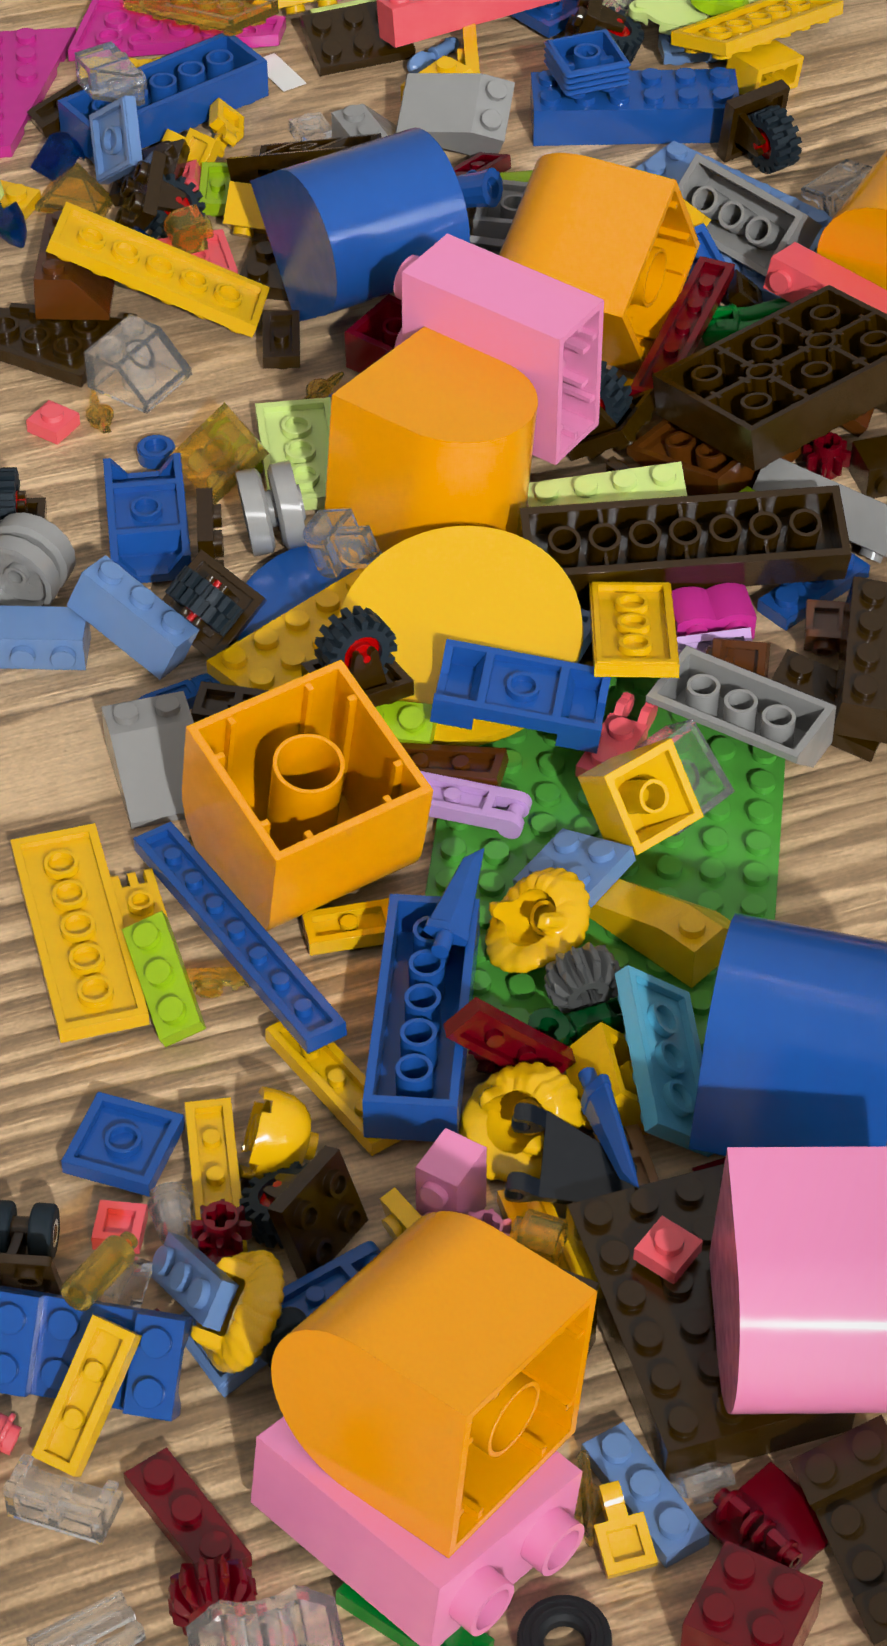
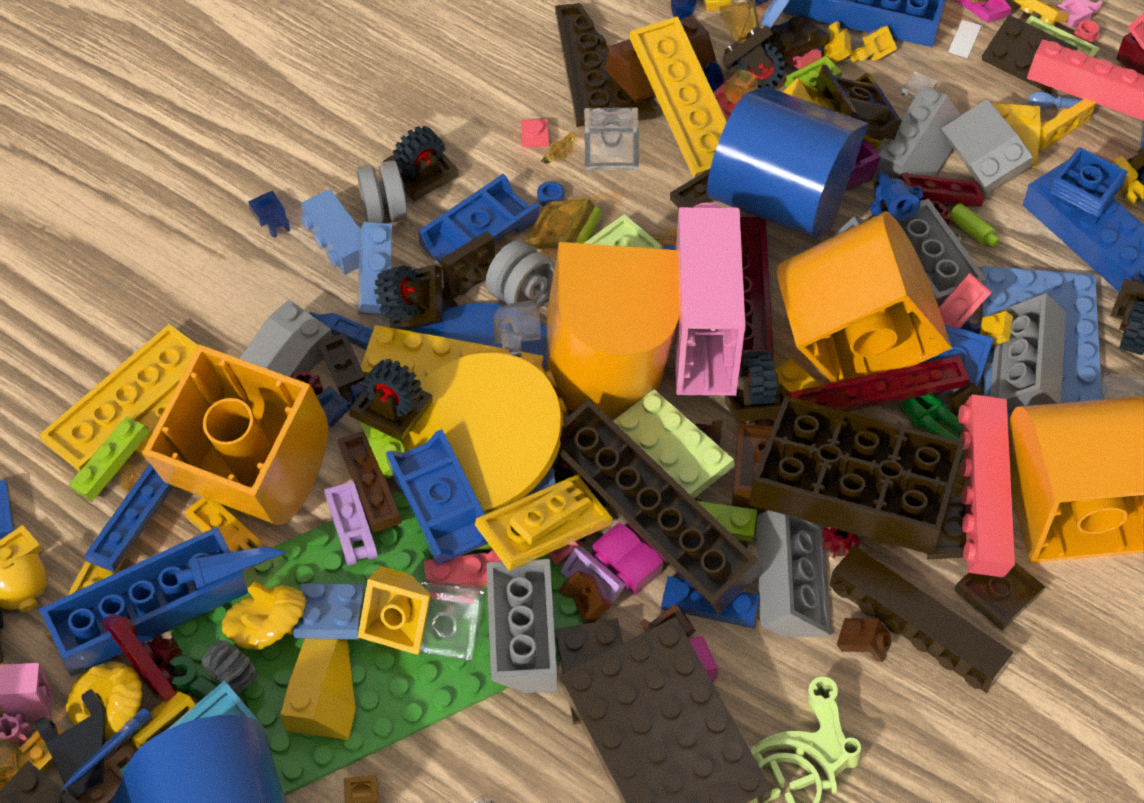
camera: 55 degrees right, 10 degrees up
(634, 612) = (550, 512): none -> yellow hinge

